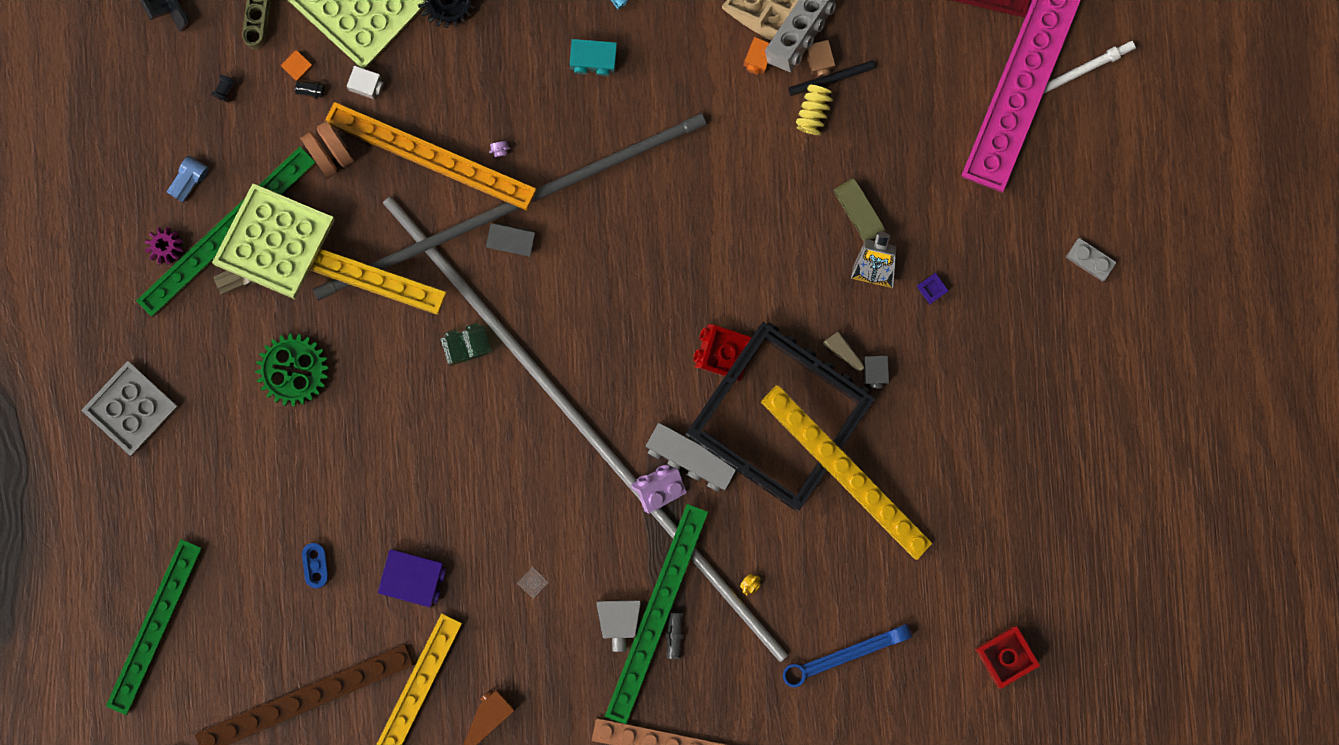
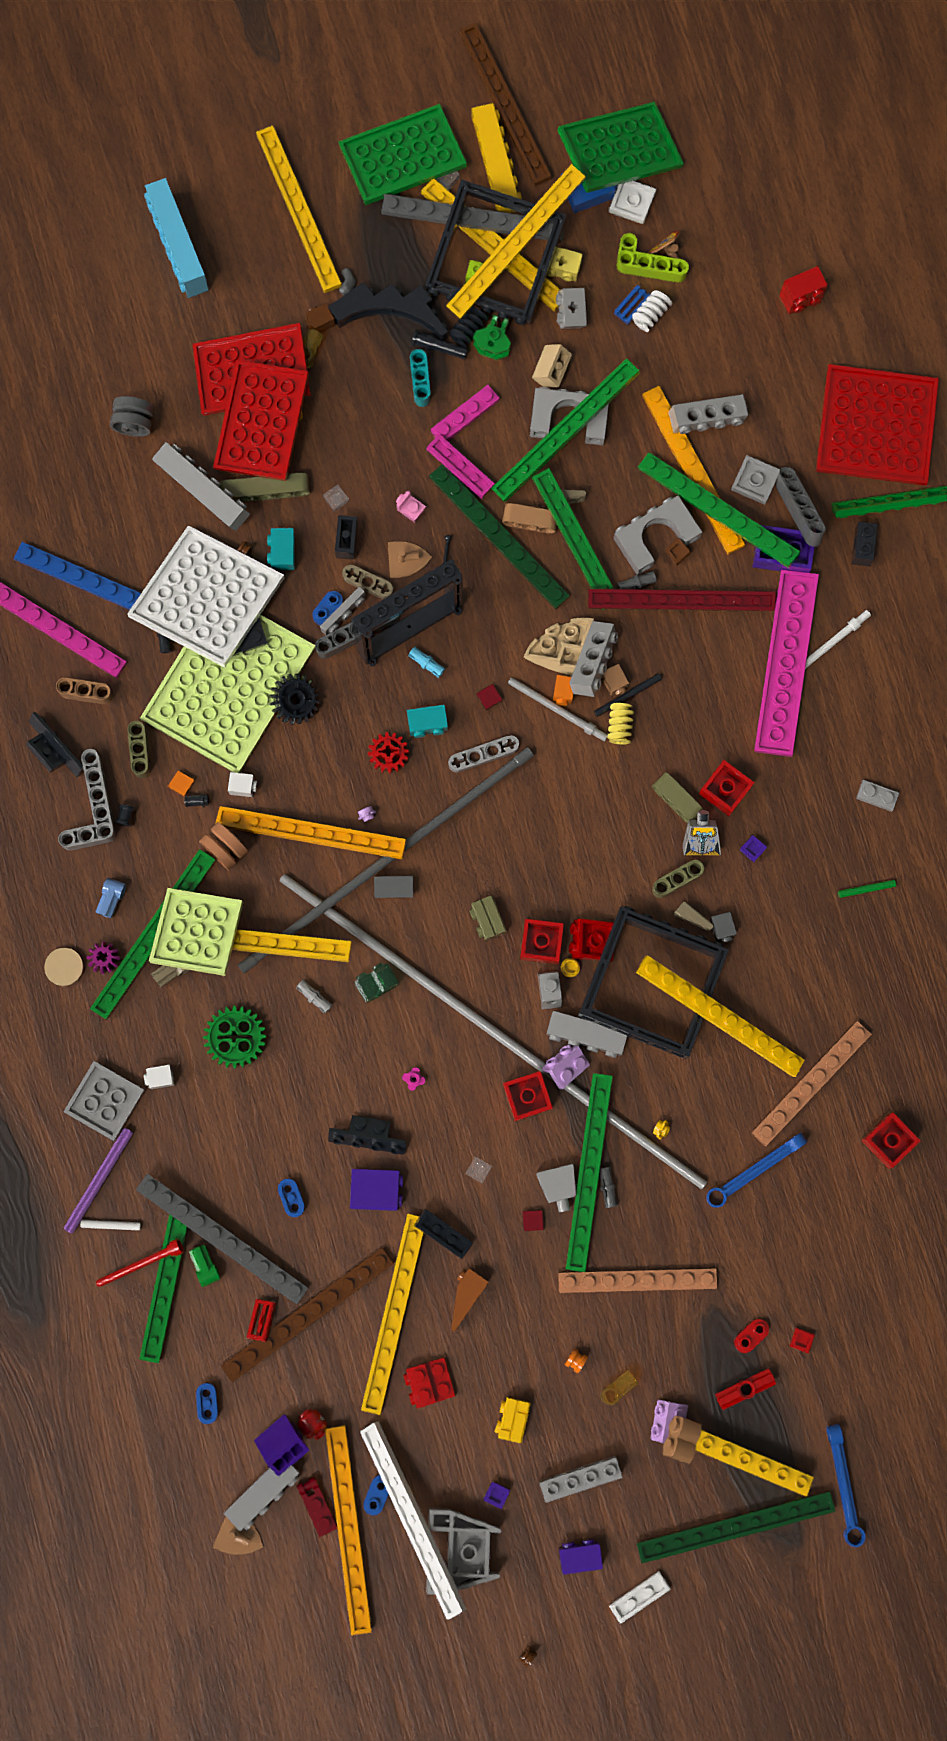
camera: 15 degrees left, 5 degrees down
(104, 496) = (98, 1180): none -> medium lavender axle
(108, 549) = (110, 1225): none -> white bar
(117, 246) = (64, 967): none -> tan tile
(170, 592) = (174, 1248): none -> red piece
(193, 71) = (96, 806): none -> light grey beam
(197, 395) = (159, 1077): none -> white brick
(202, 625) = (206, 1270): none -> green piece
(226, 593) = (222, 1238): none -> dark grey plate
(258, 698) = (264, 1337): none -> red tile
(392, 344) = (314, 996): none -> light grey pin
(417, 513) = (368, 1134): none -> black bracket
(476, 645) = (443, 1234): none -> black plate
(477, 461) = (408, 1078): none -> dark pink plate
(527, 81) = (380, 753): none -> red gear
(581, 653) = (532, 1220): none -> dark red tile
(606, 512) = (527, 1096): none -> red brick
(610, 300) = (488, 918): none -> olive brick
(649, 105) = (484, 756): none -> light grey beam
(660, 397) = (549, 989): none -> light grey torso
(664, 340) = (541, 941): none -> red brick
(671, 45) = (489, 697): none -> dark red tile
(690, 377) = (570, 967): none -> yellow plate
(778, 107) = (589, 728): none -> light grey bar
(847, 299) = (684, 872): none -> olive beam
(918, 212) = (726, 788): none -> red brick
(933, 571) = (811, 1083): none -> nougat plate
(1052, 364) = (866, 888): none -> green bar

